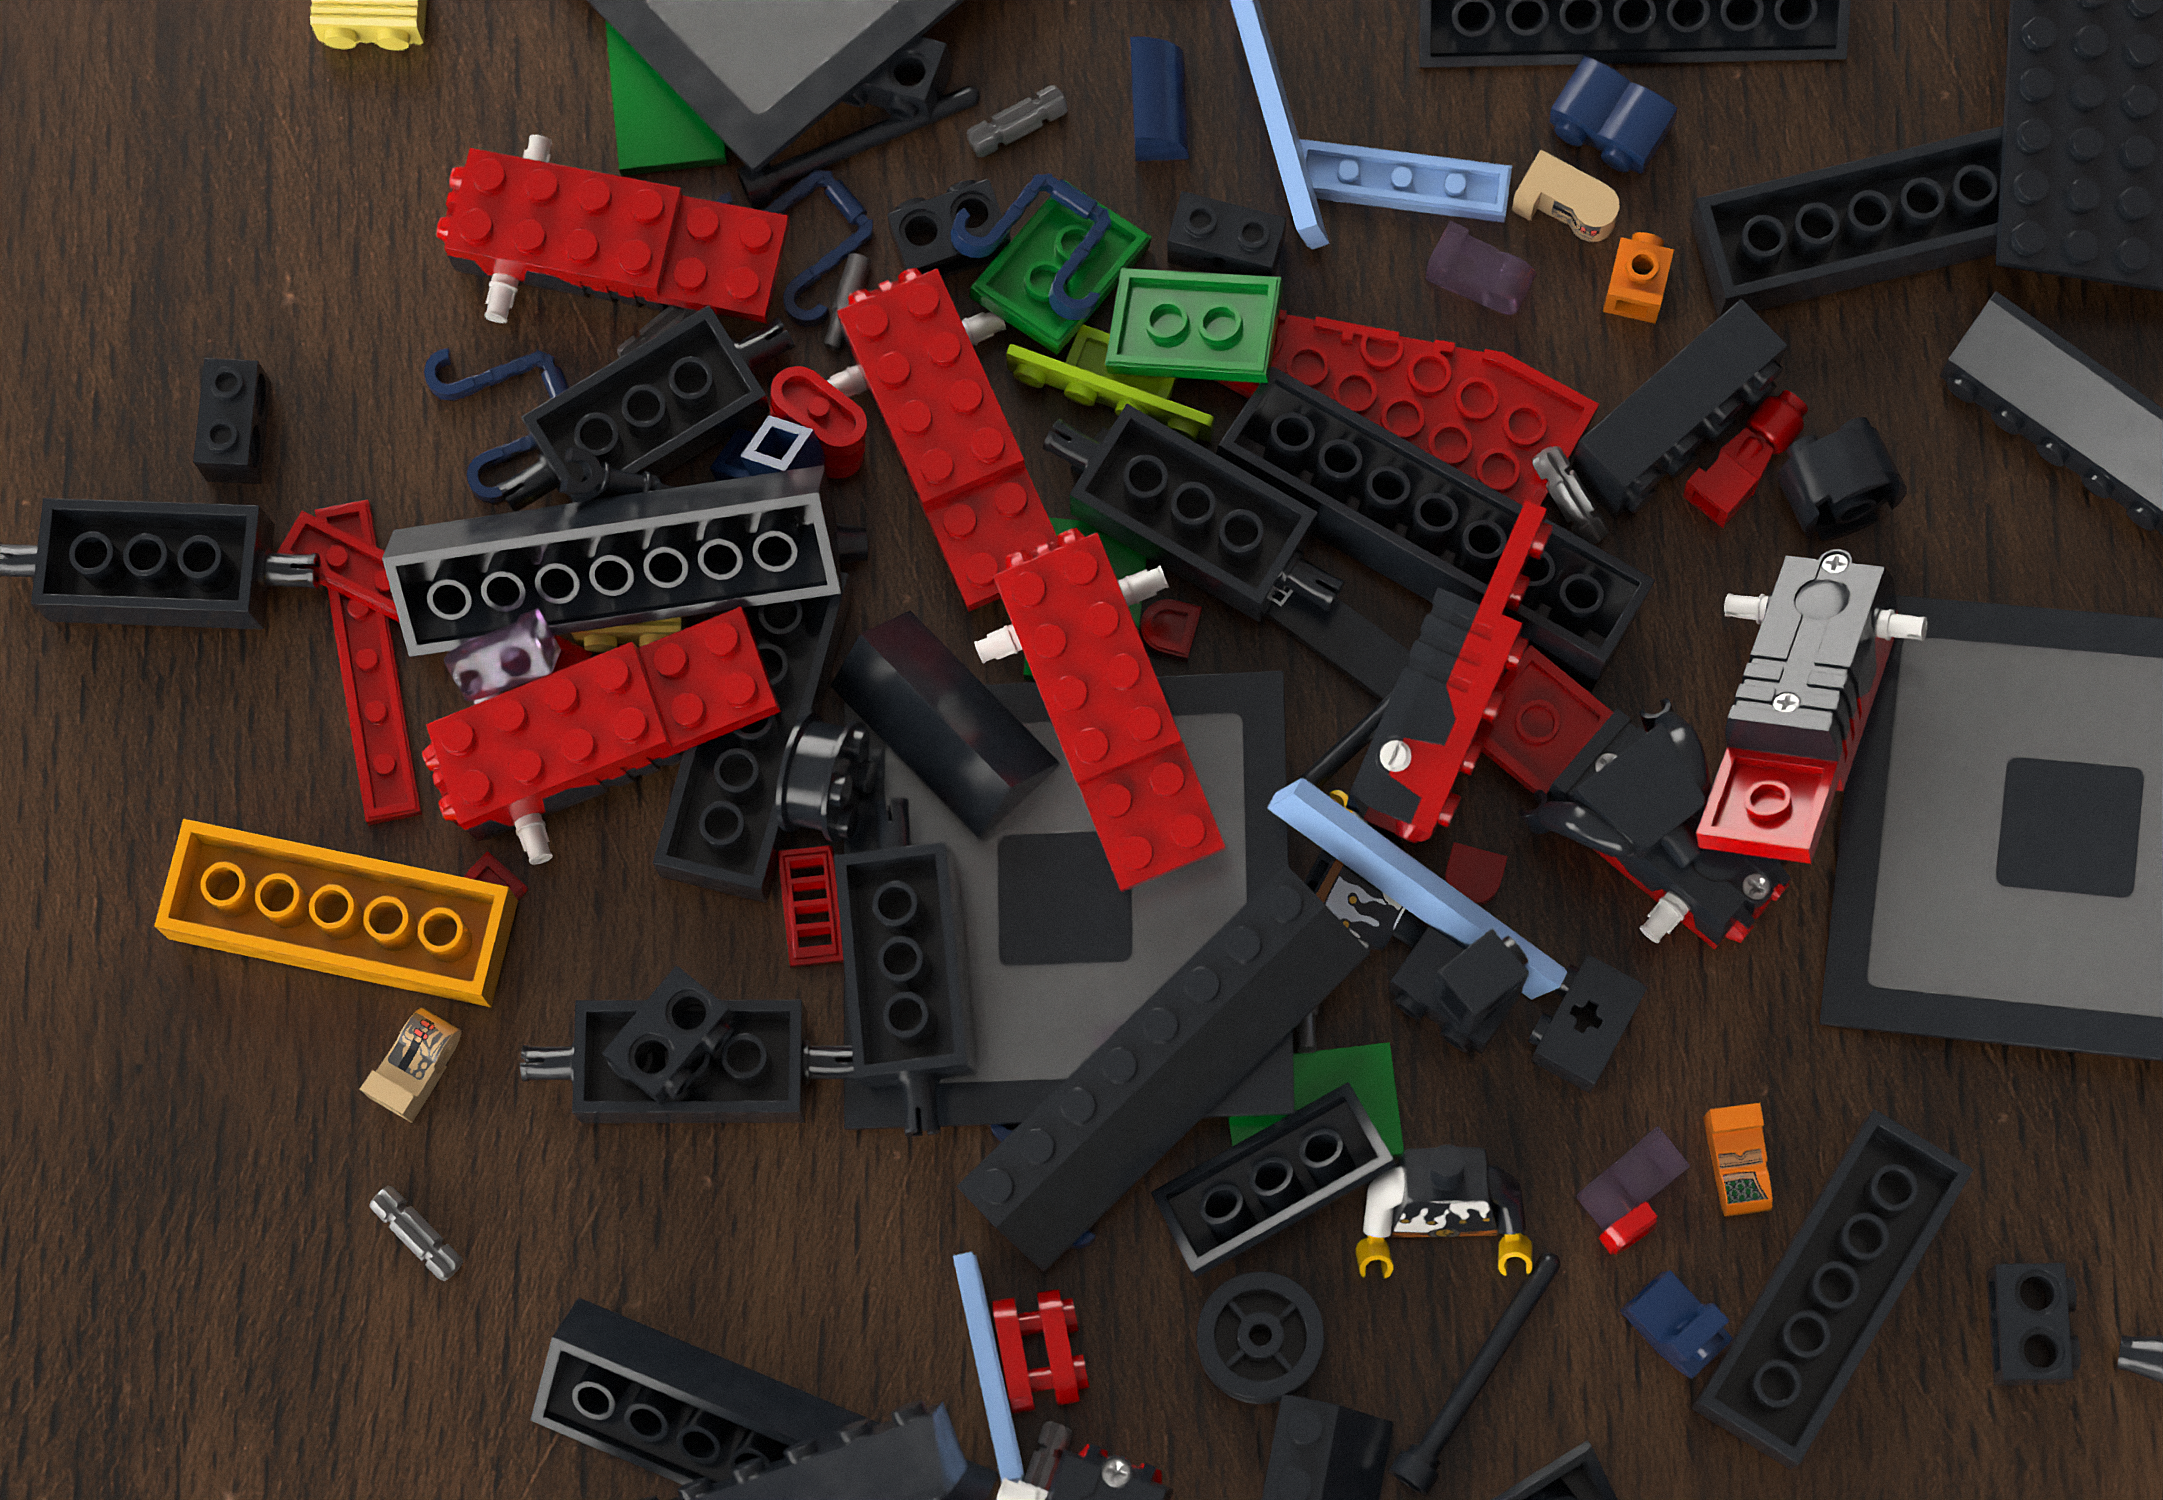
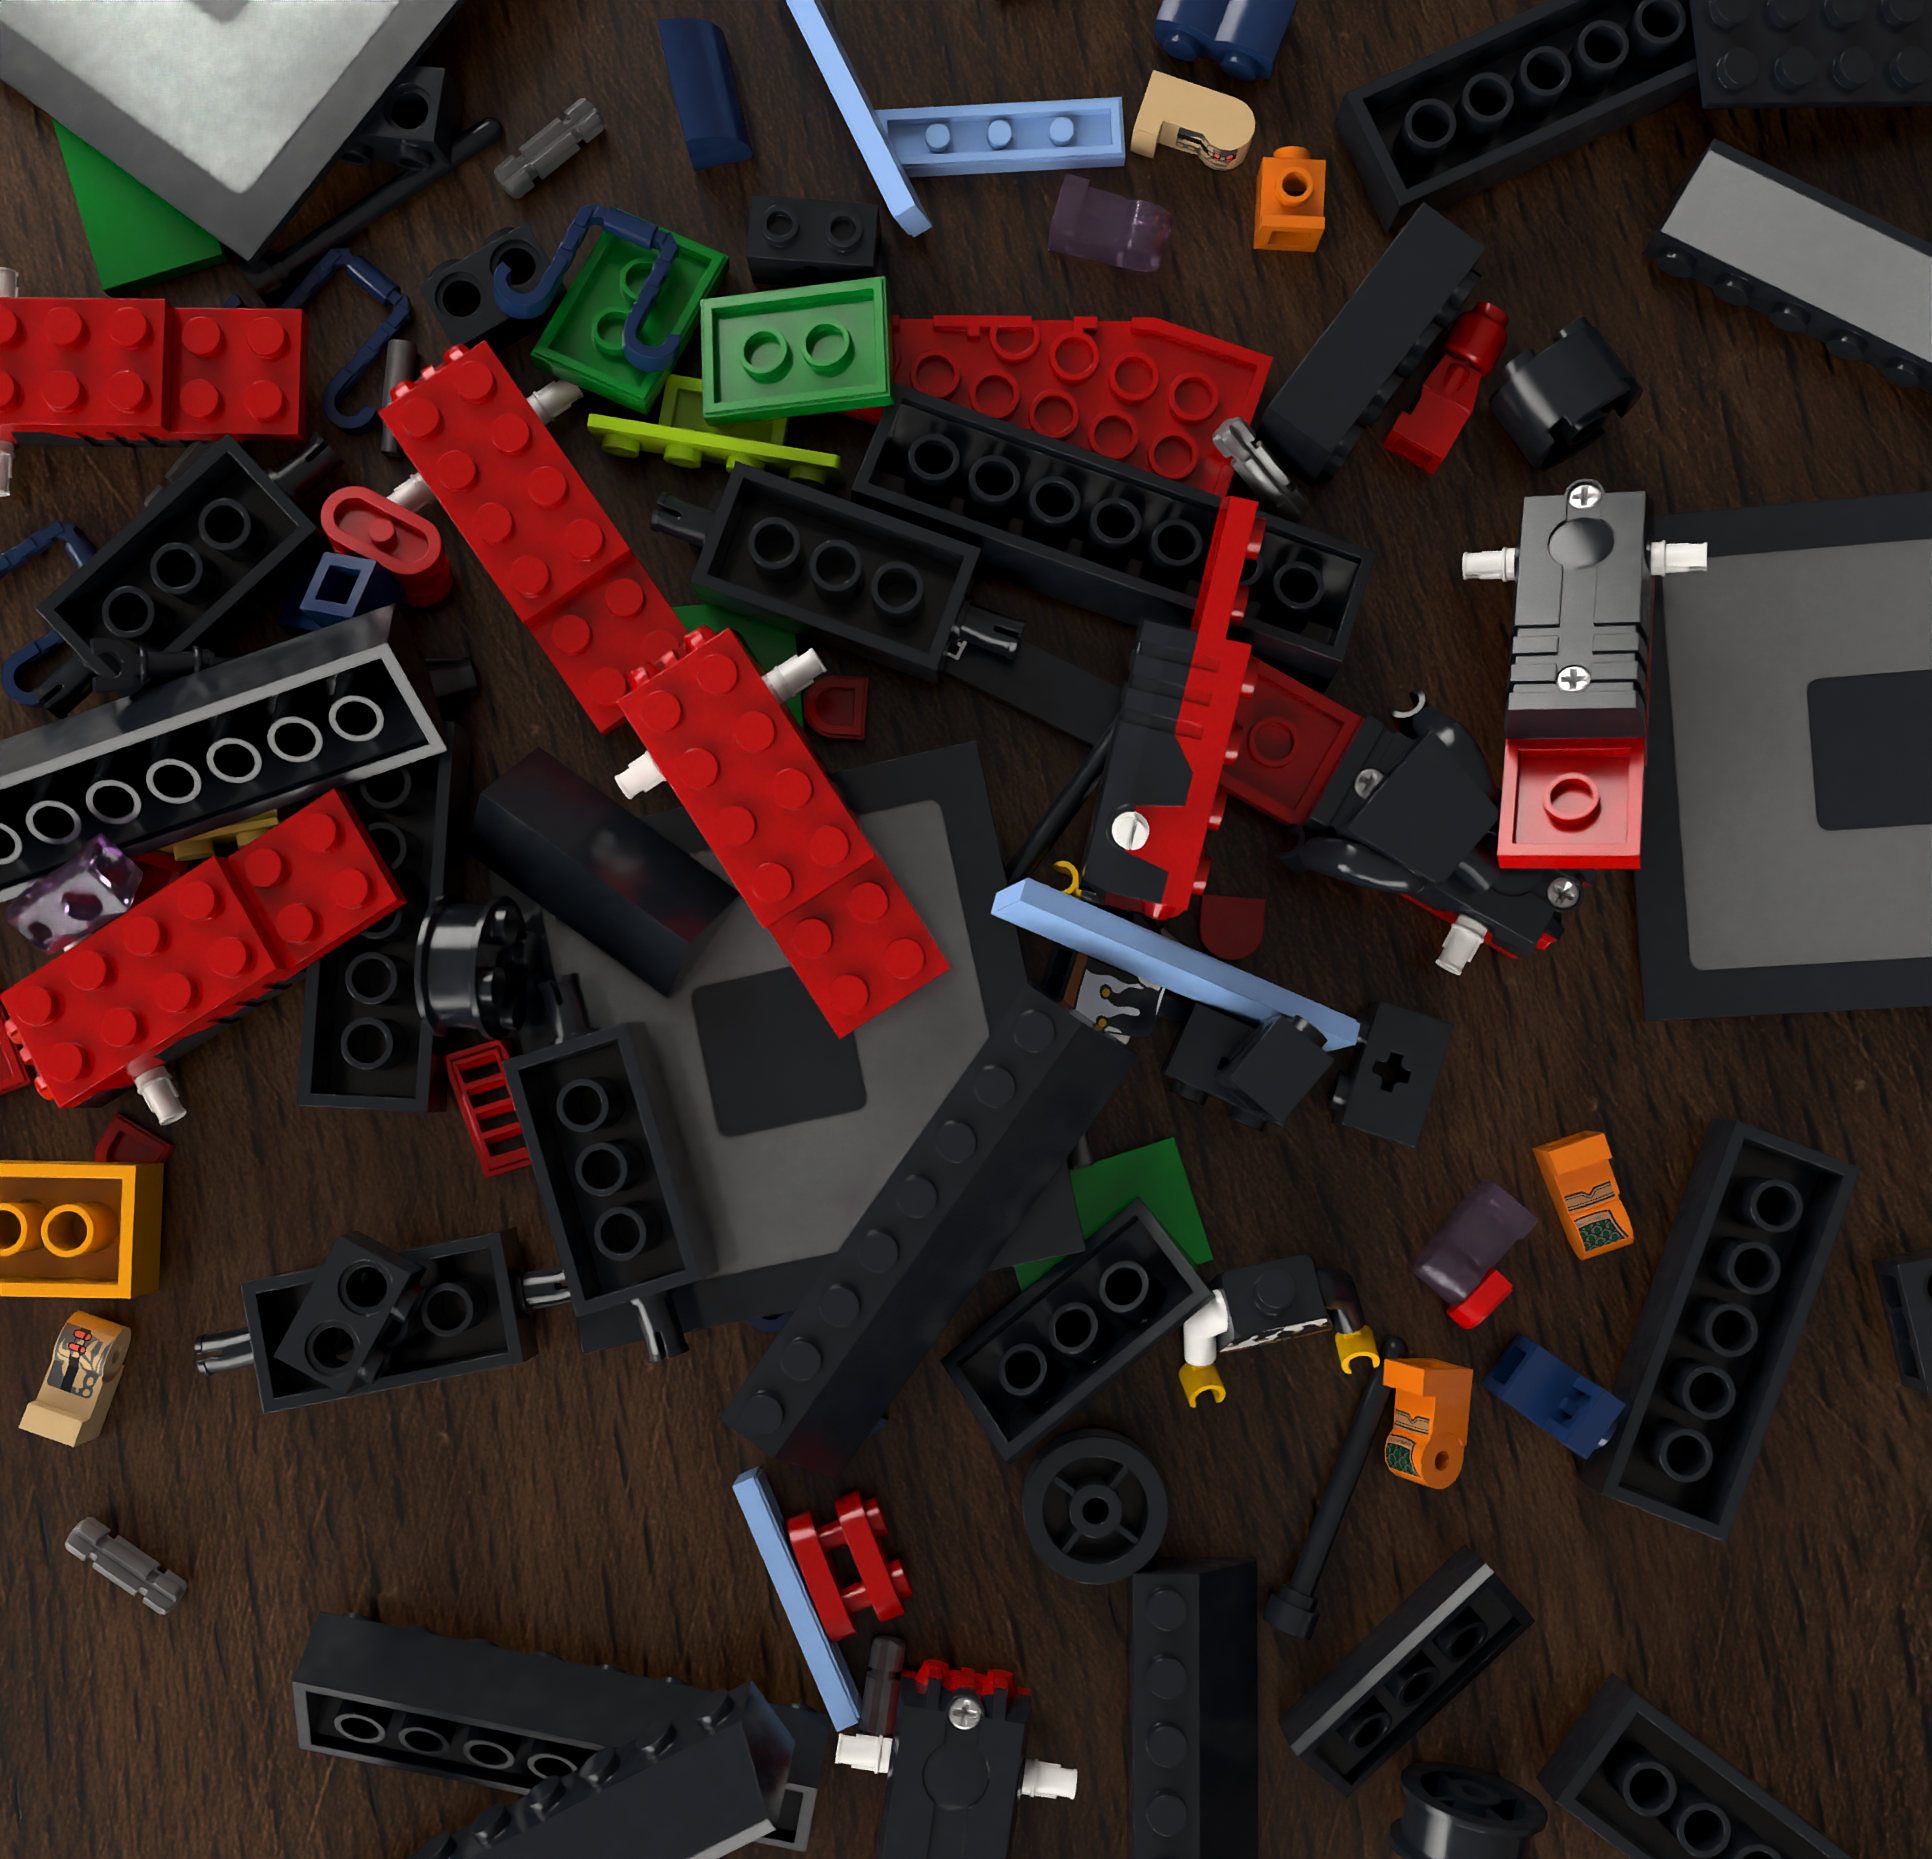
camera: 15 degrees left, 10 degrees up
(1565, 1323) = (1428, 1419): none -> orange leg

